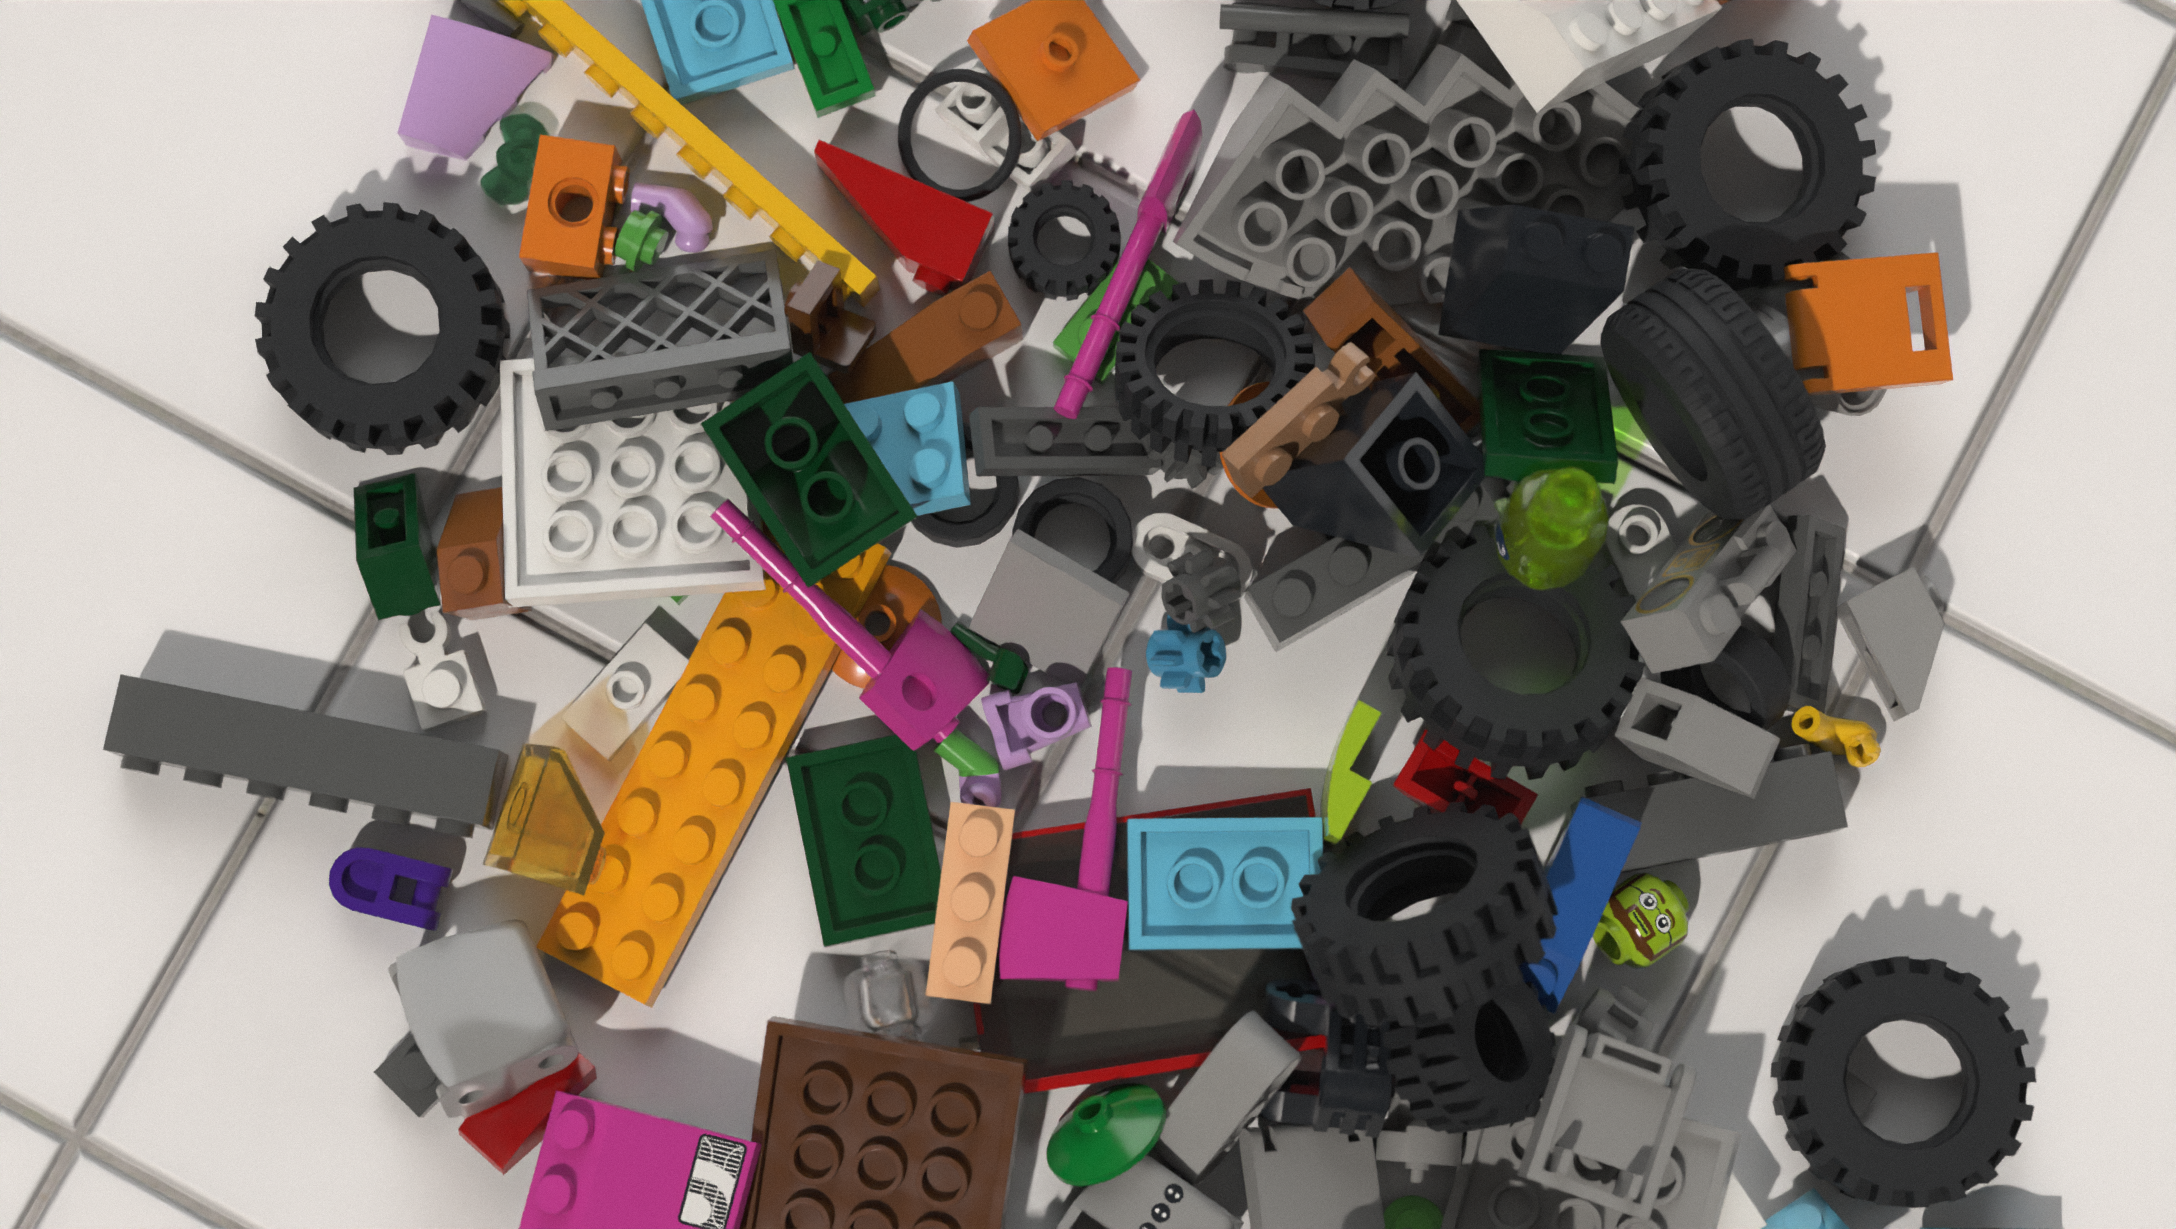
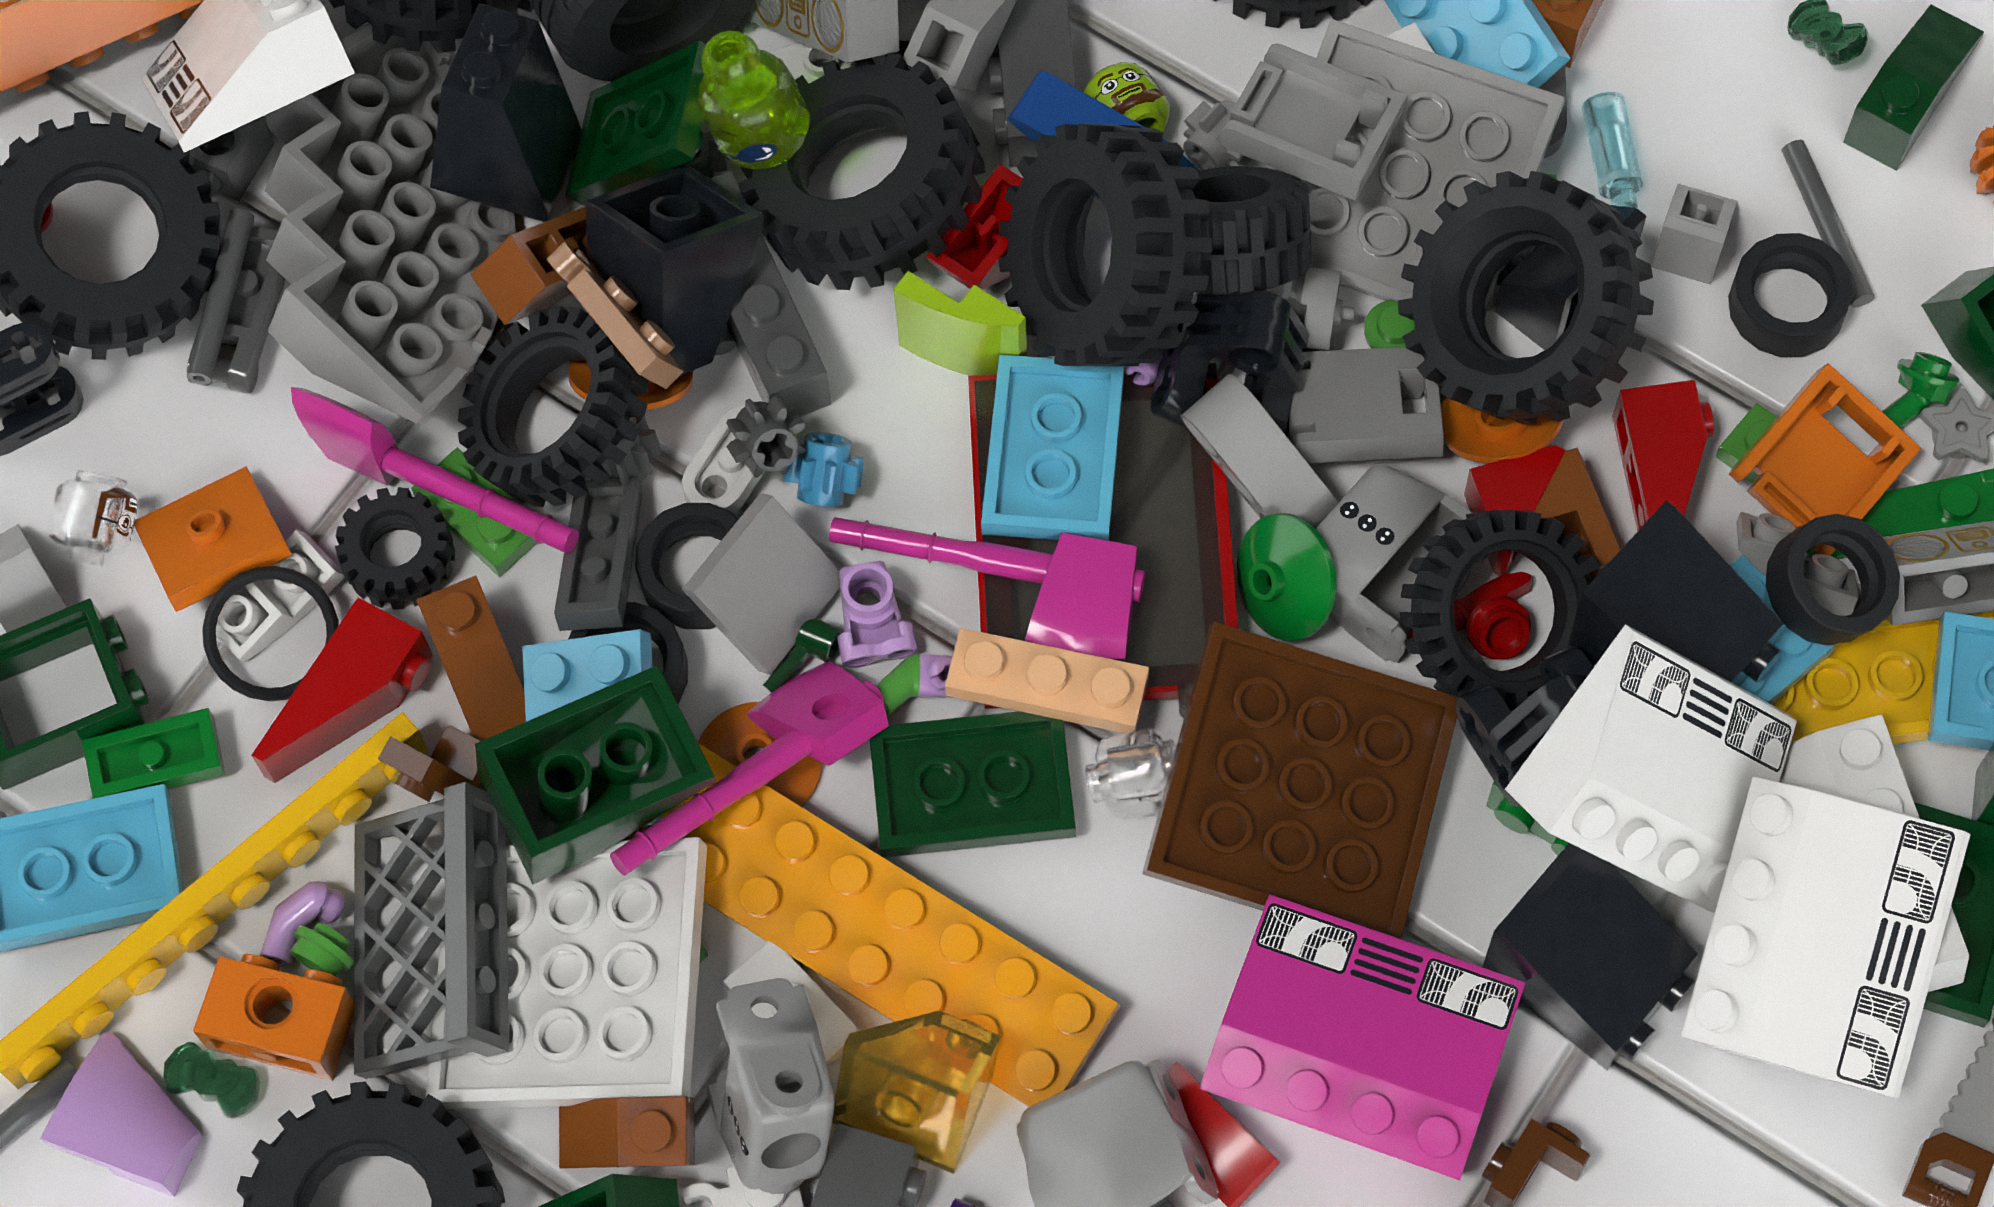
camera: 80 degrees left, 15 degrees down
(515, 682) = (777, 1089): none -> light grey piece

